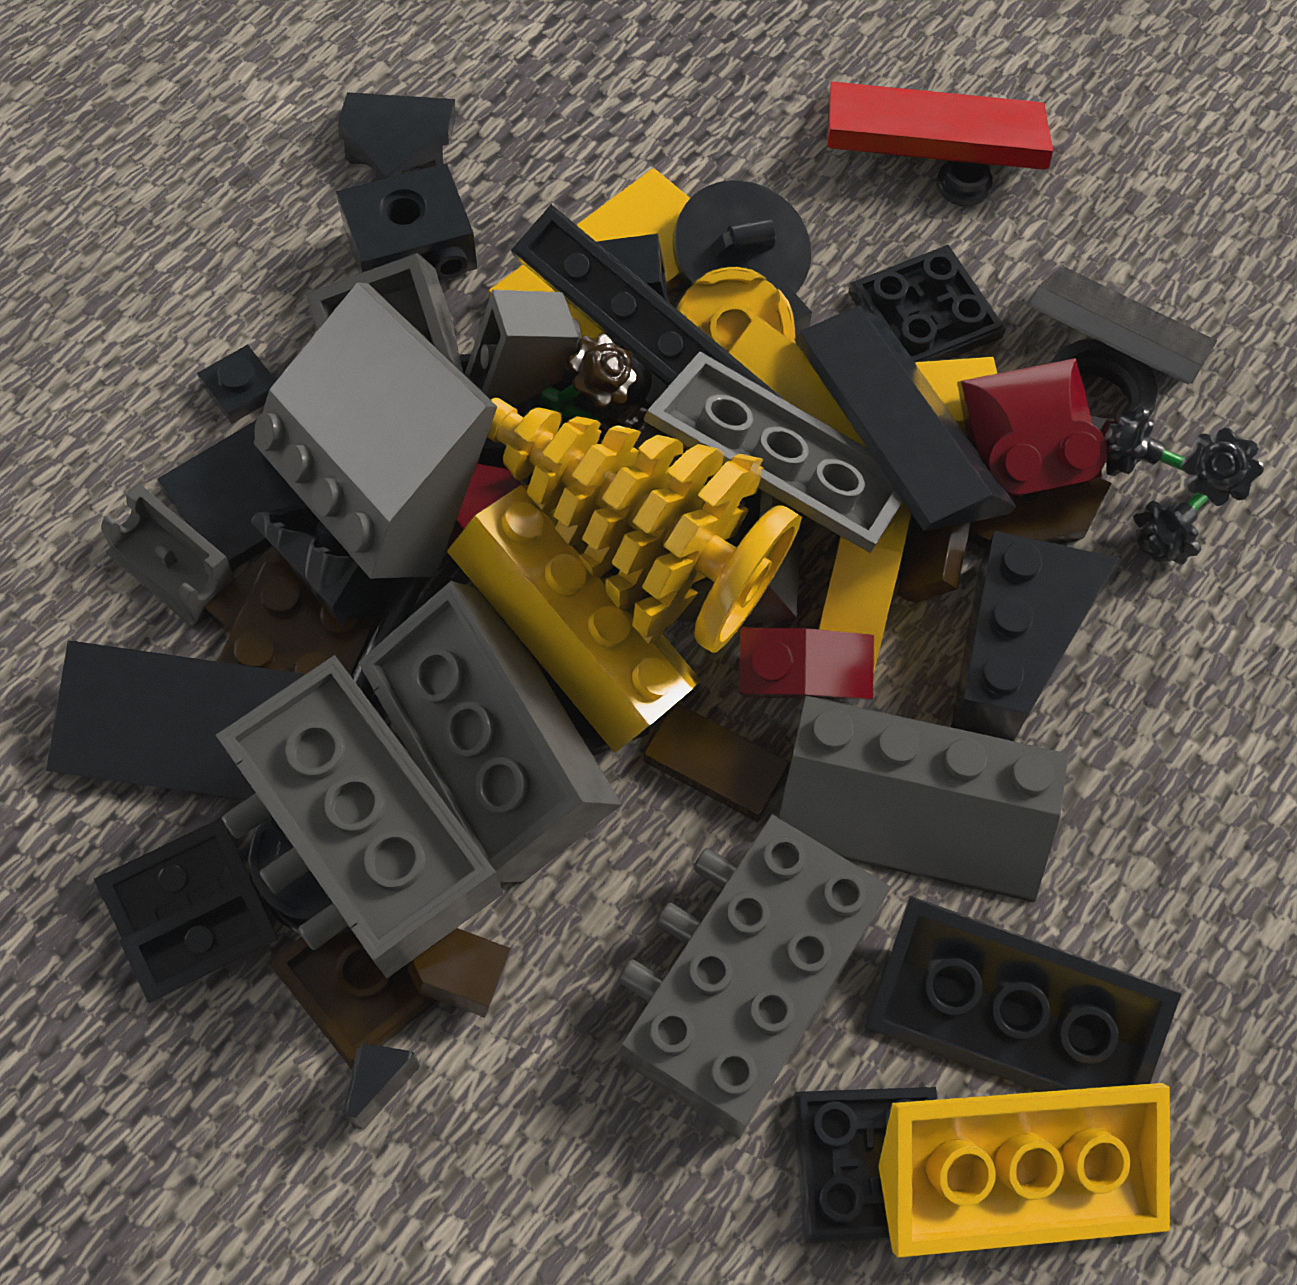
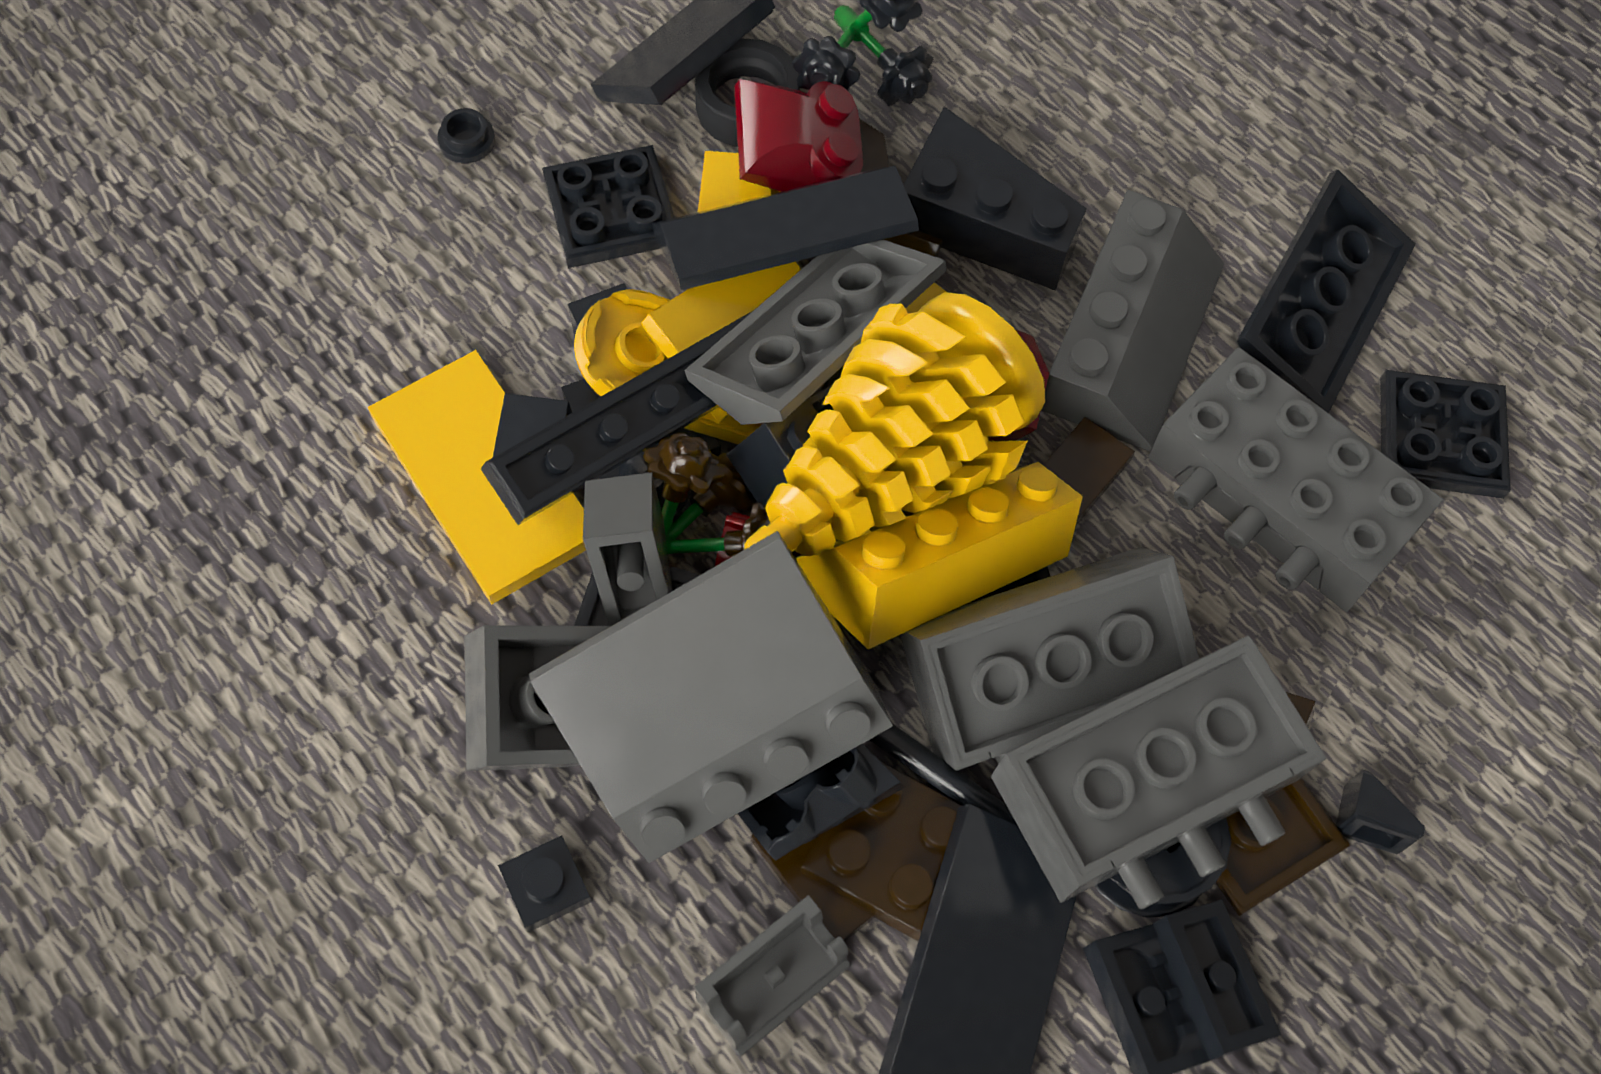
camera: 80 degrees left, 0 degrees up
(223, 492) = (696, 900): black tile -> none
(395, 131) = (227, 668): black slope -> none
(408, 217) = (421, 689): black brick -> none
(744, 228) = (498, 342): black shield -> none
(938, 125) = (396, 141): tile -> none
(1026, 1168) = (1471, 318): yellow slope -> none

